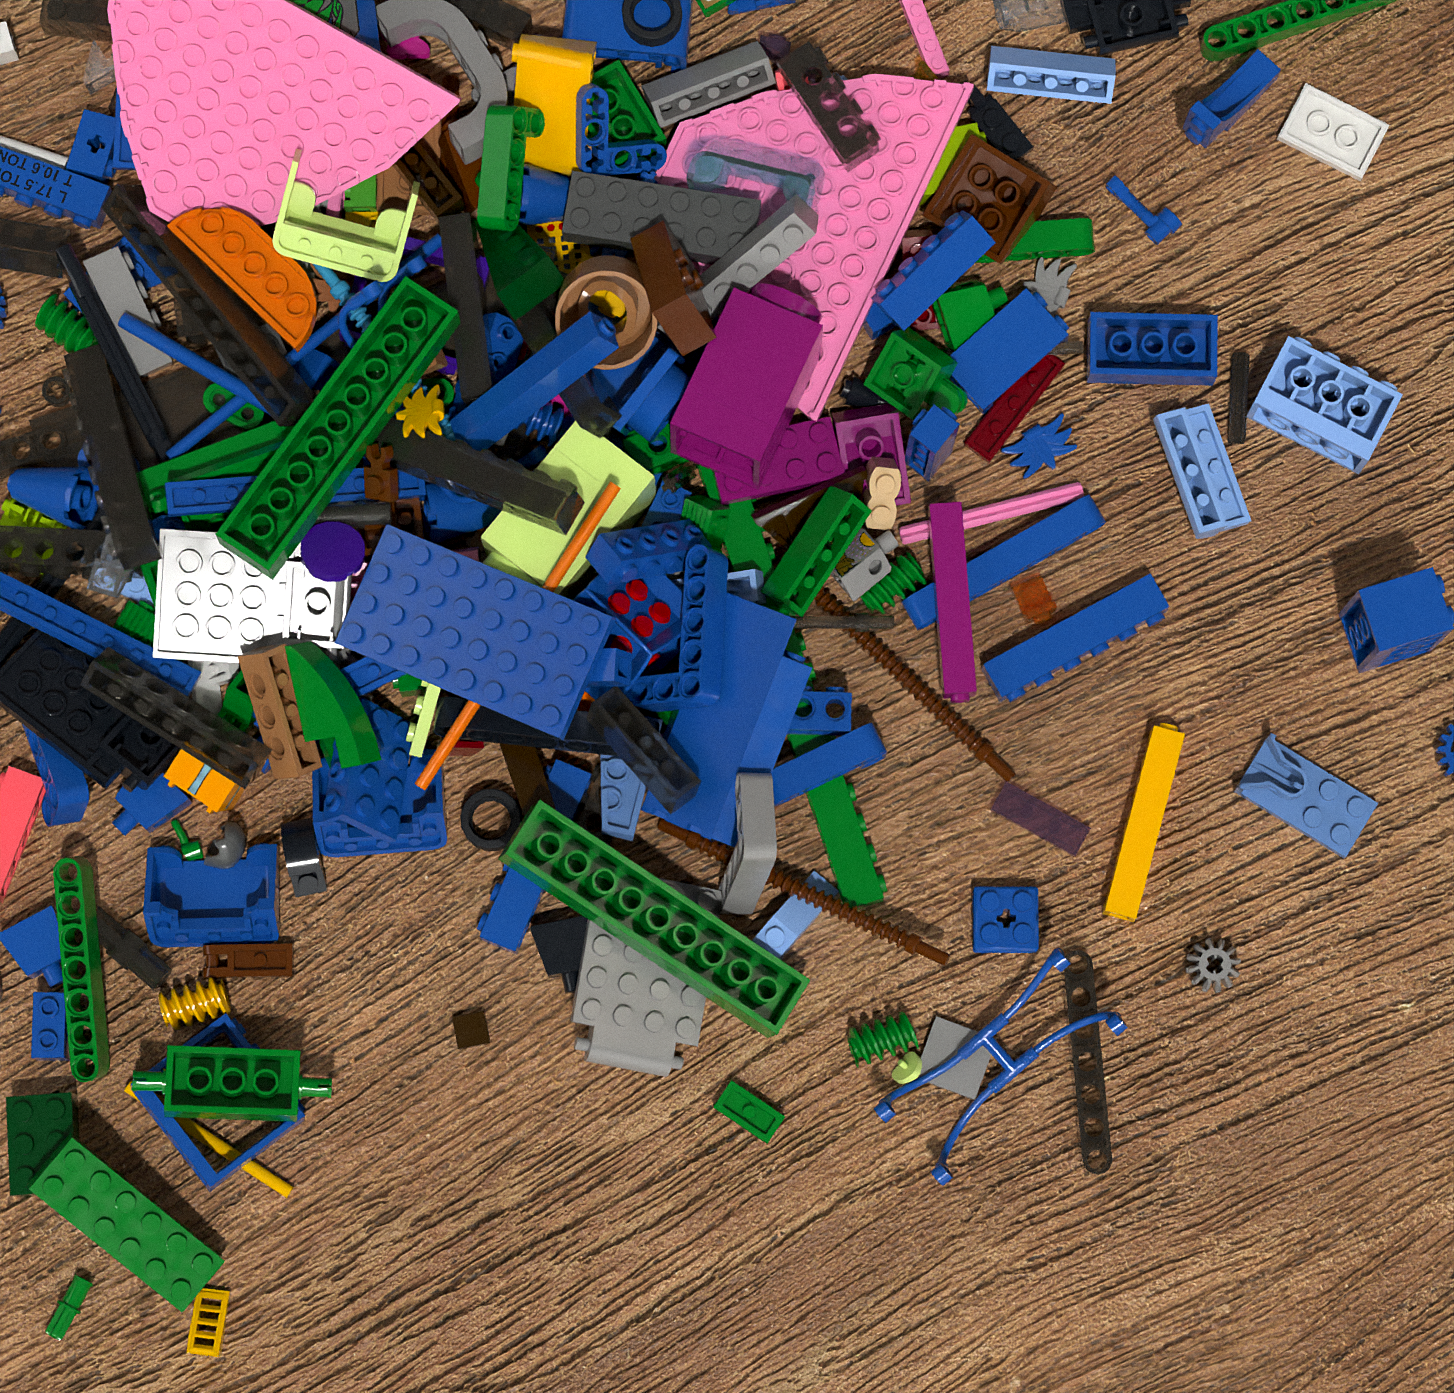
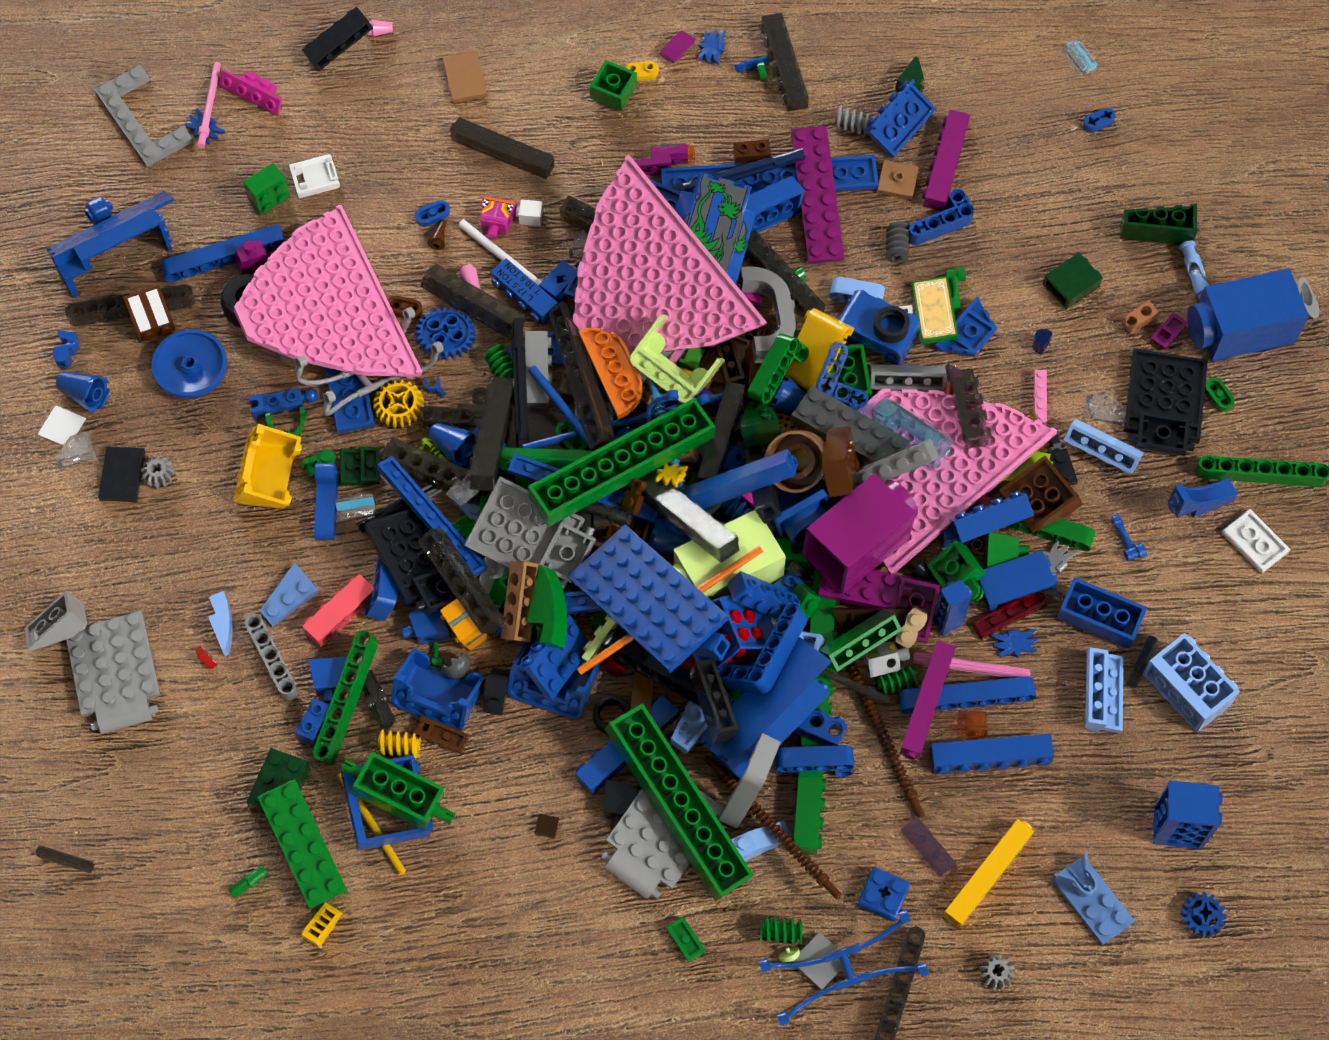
camera: 25 degrees right, 15 degrees down
(332, 551) = (588, 526): dark purple tile -> none

